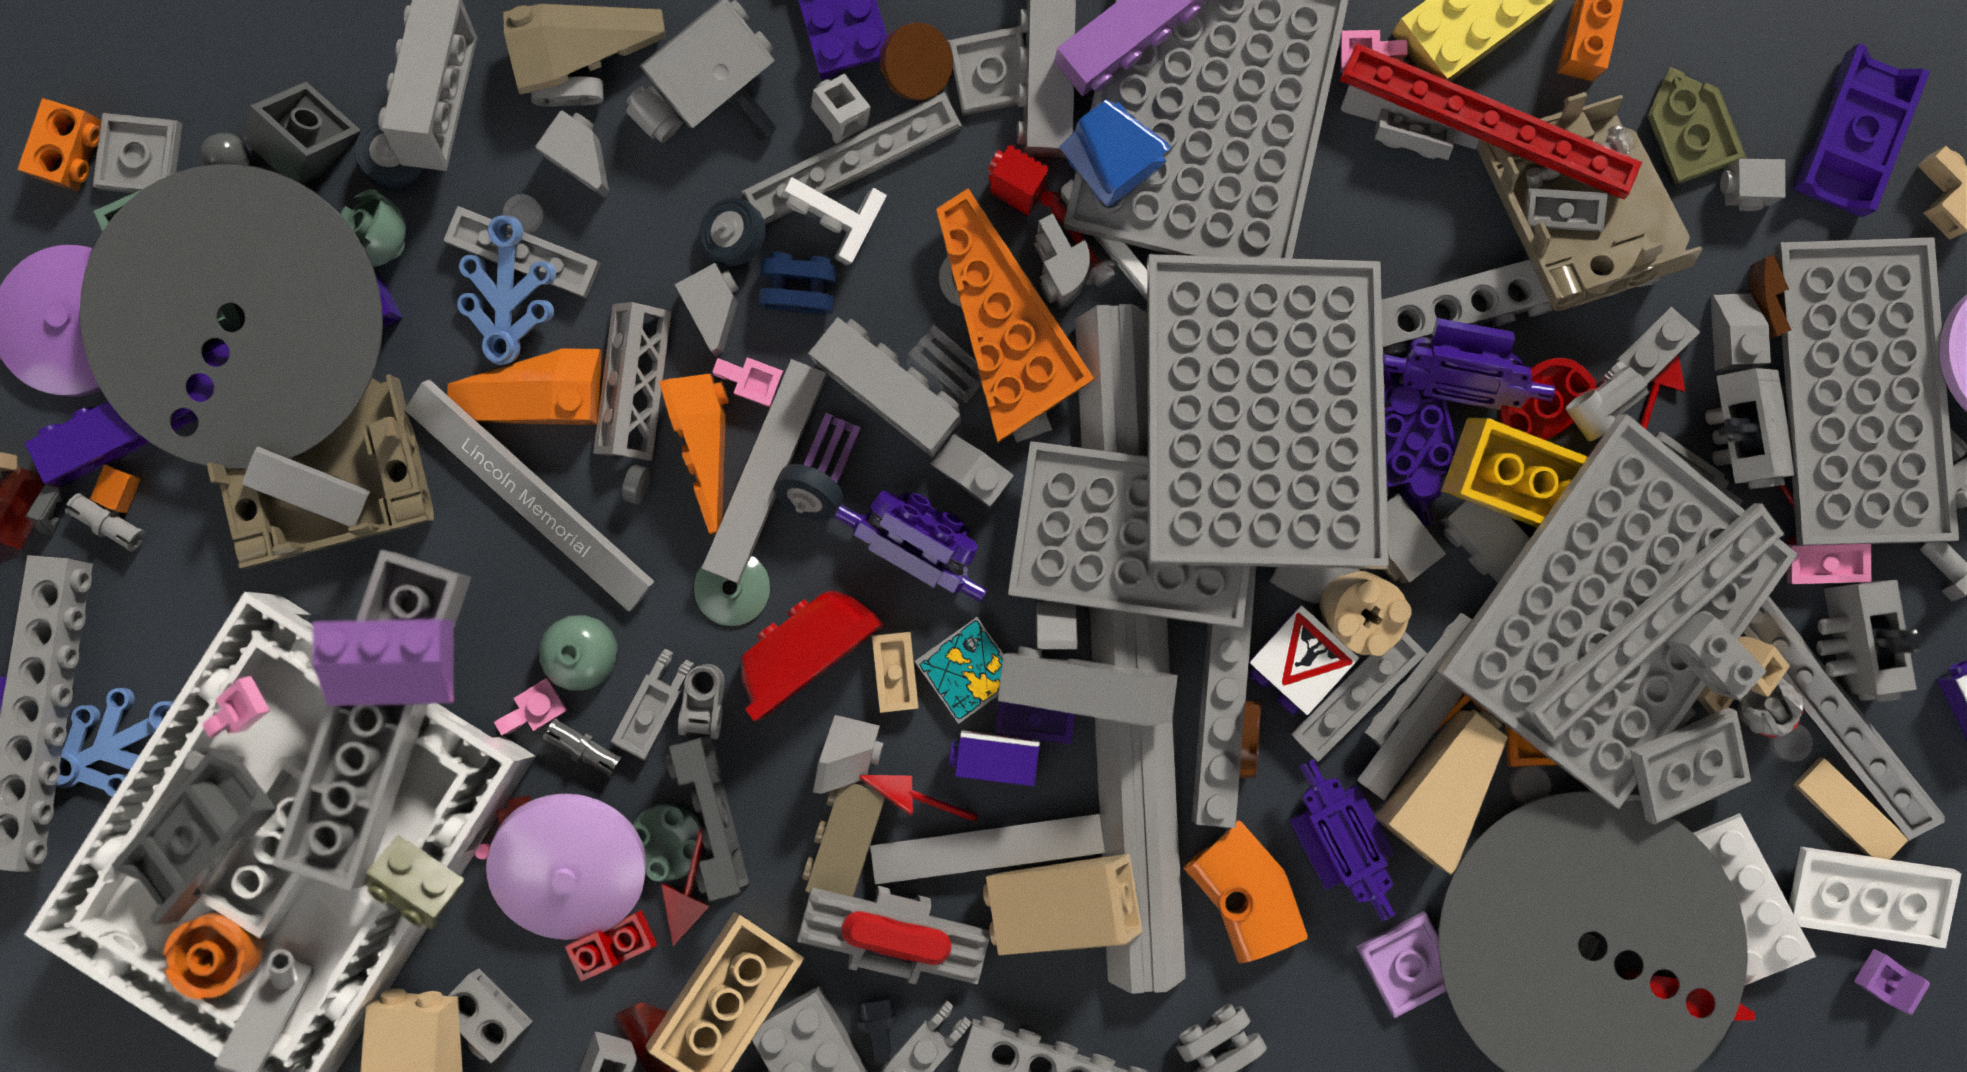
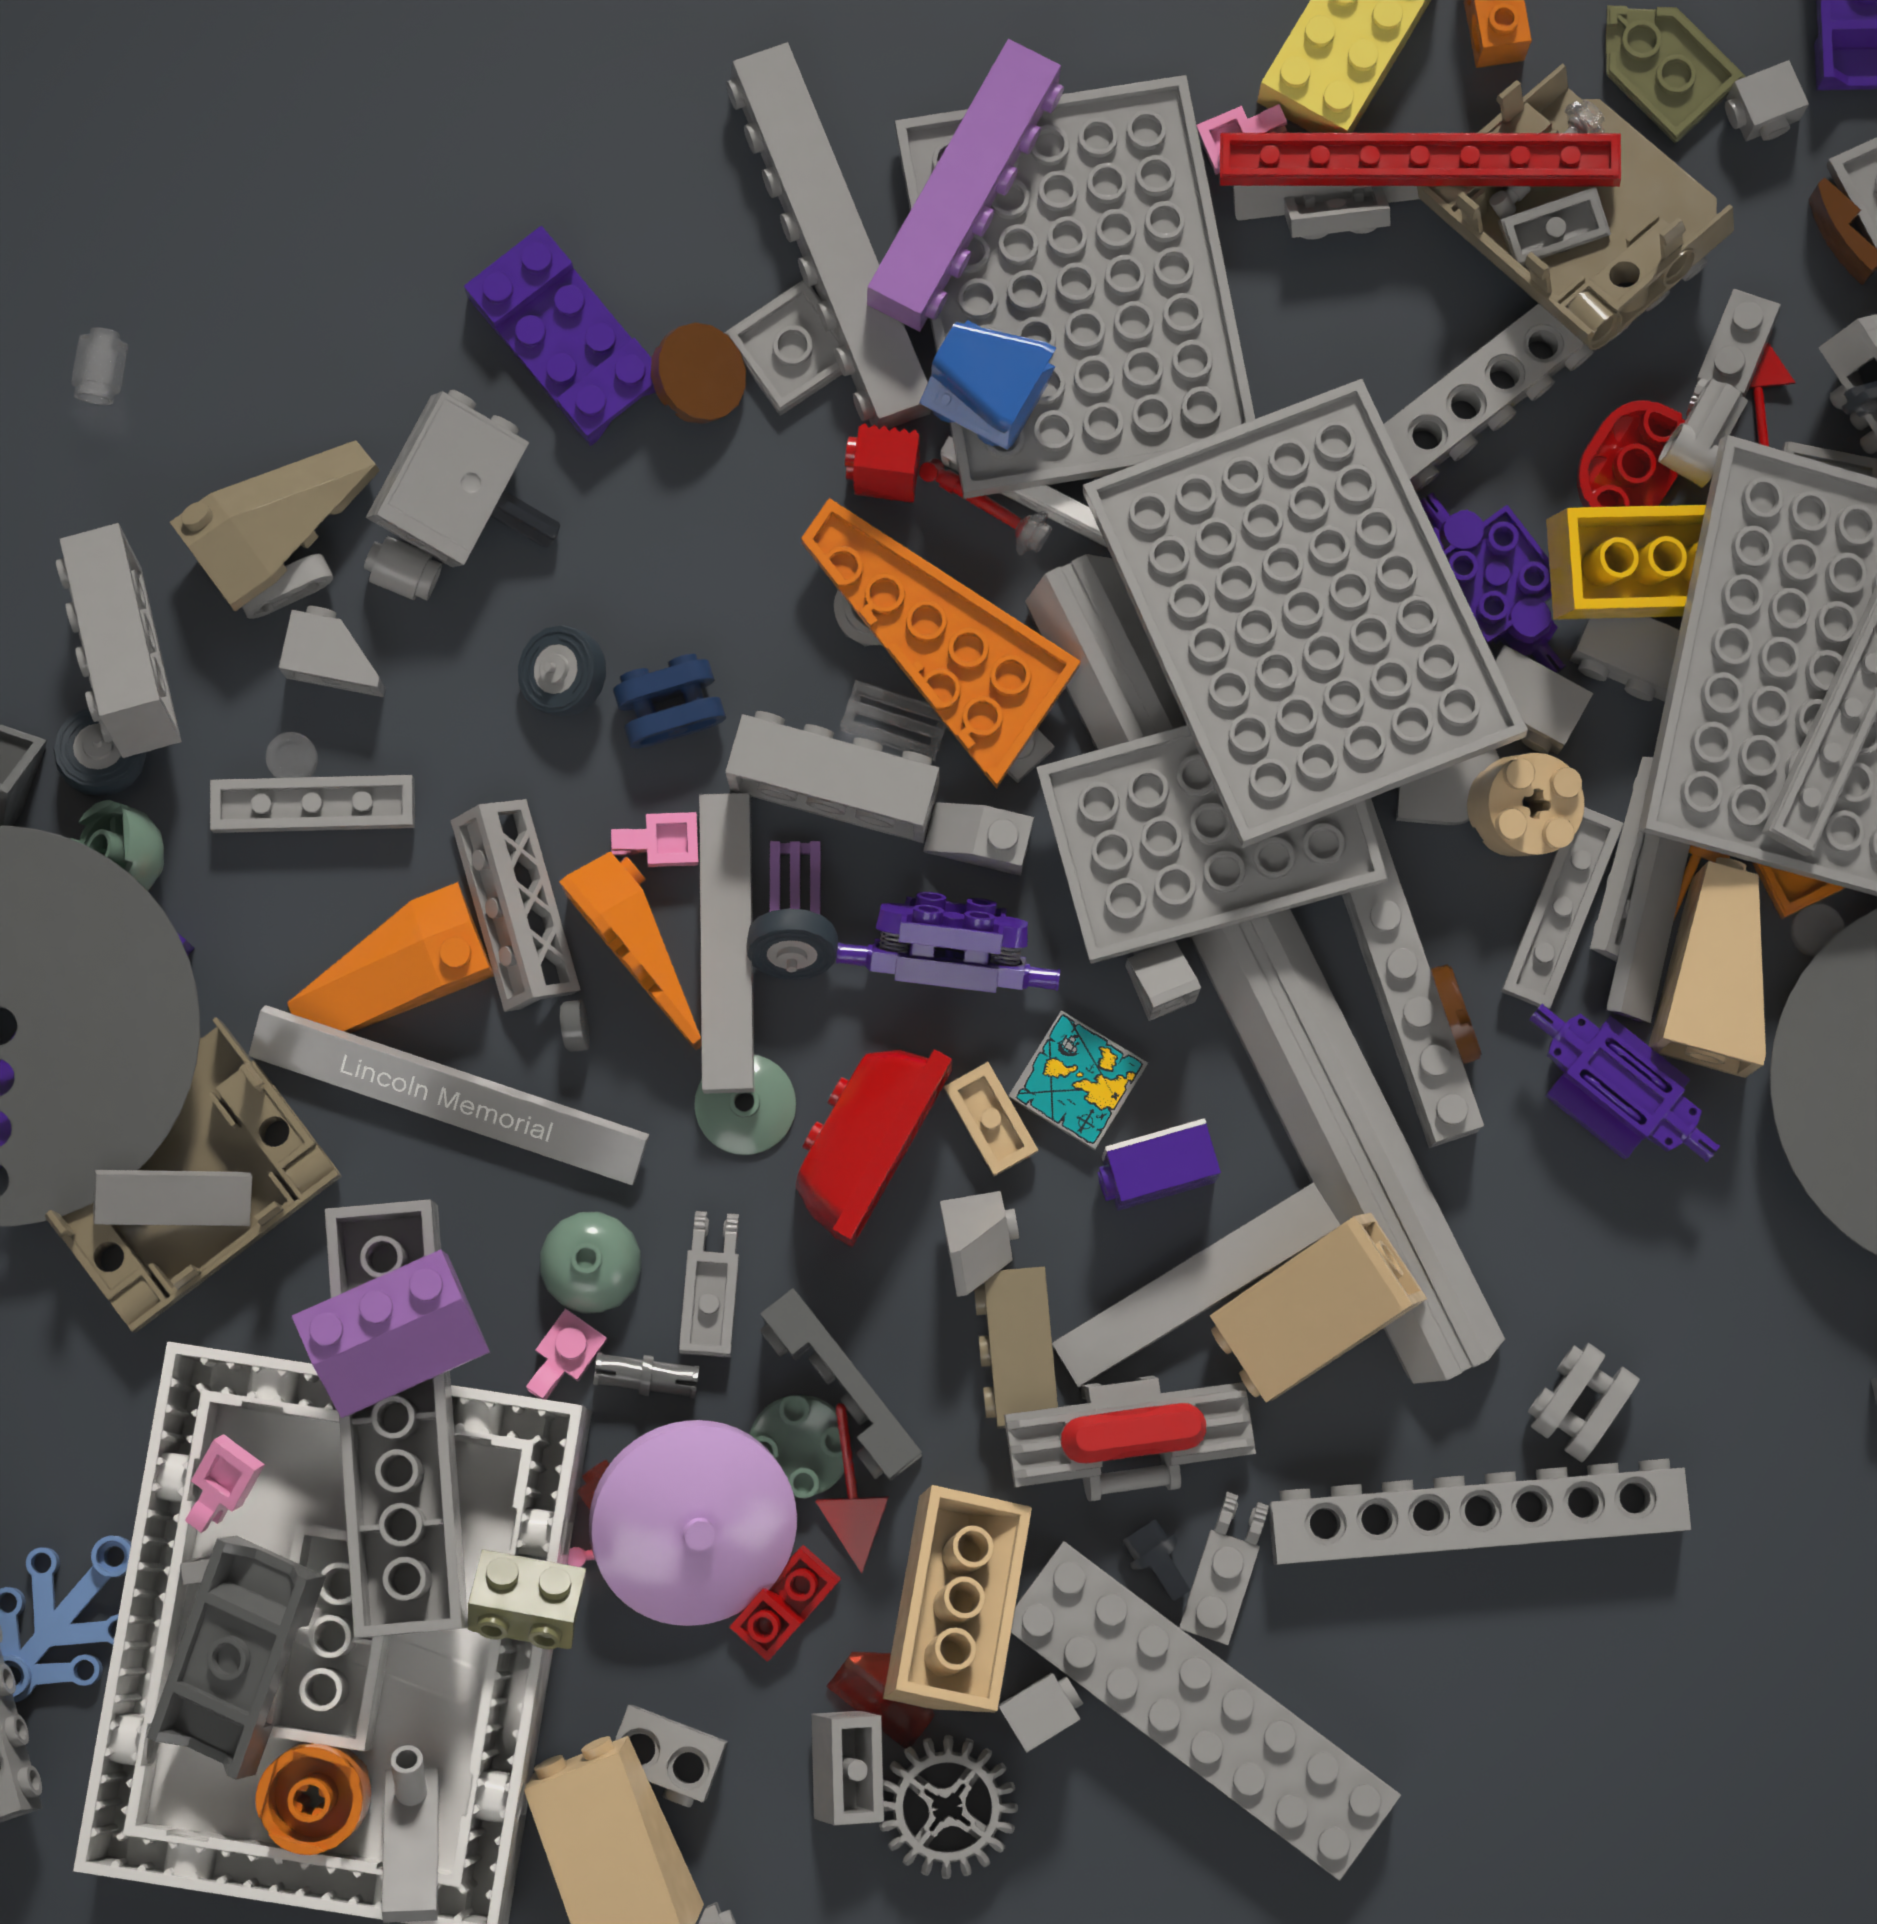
camera: 25 degrees left, 5 degrees down
(504, 296) = (315, 866): medium blue plant -> none
(702, 704) = (771, 1259): light grey piece -> none
(711, 304) = (572, 769): light grey slope -> none
(836, 216) = (682, 598): white bracket -> none
(840, 107) = (629, 466): light grey brick -> none
(859, 155) = (670, 521): light grey tile -> none
(899, 791) = (1061, 1258): red piece -> none
(1034, 723) = (1187, 1100): dark purple plate -> none
(1063, 265) = (985, 541): light grey brick -> none
(1087, 687) = (1232, 1029): light grey brick -> none
(1269, 914) = (1571, 1214): orange panel -> none
(1300, 661) = (1476, 897): piece -> none
(1405, 964) = (1763, 1209): lavender tile -> none
(1468, 367) = (1521, 460): dark purple piece -> none
(1739, 333) = (1826, 285): light grey slope -> none

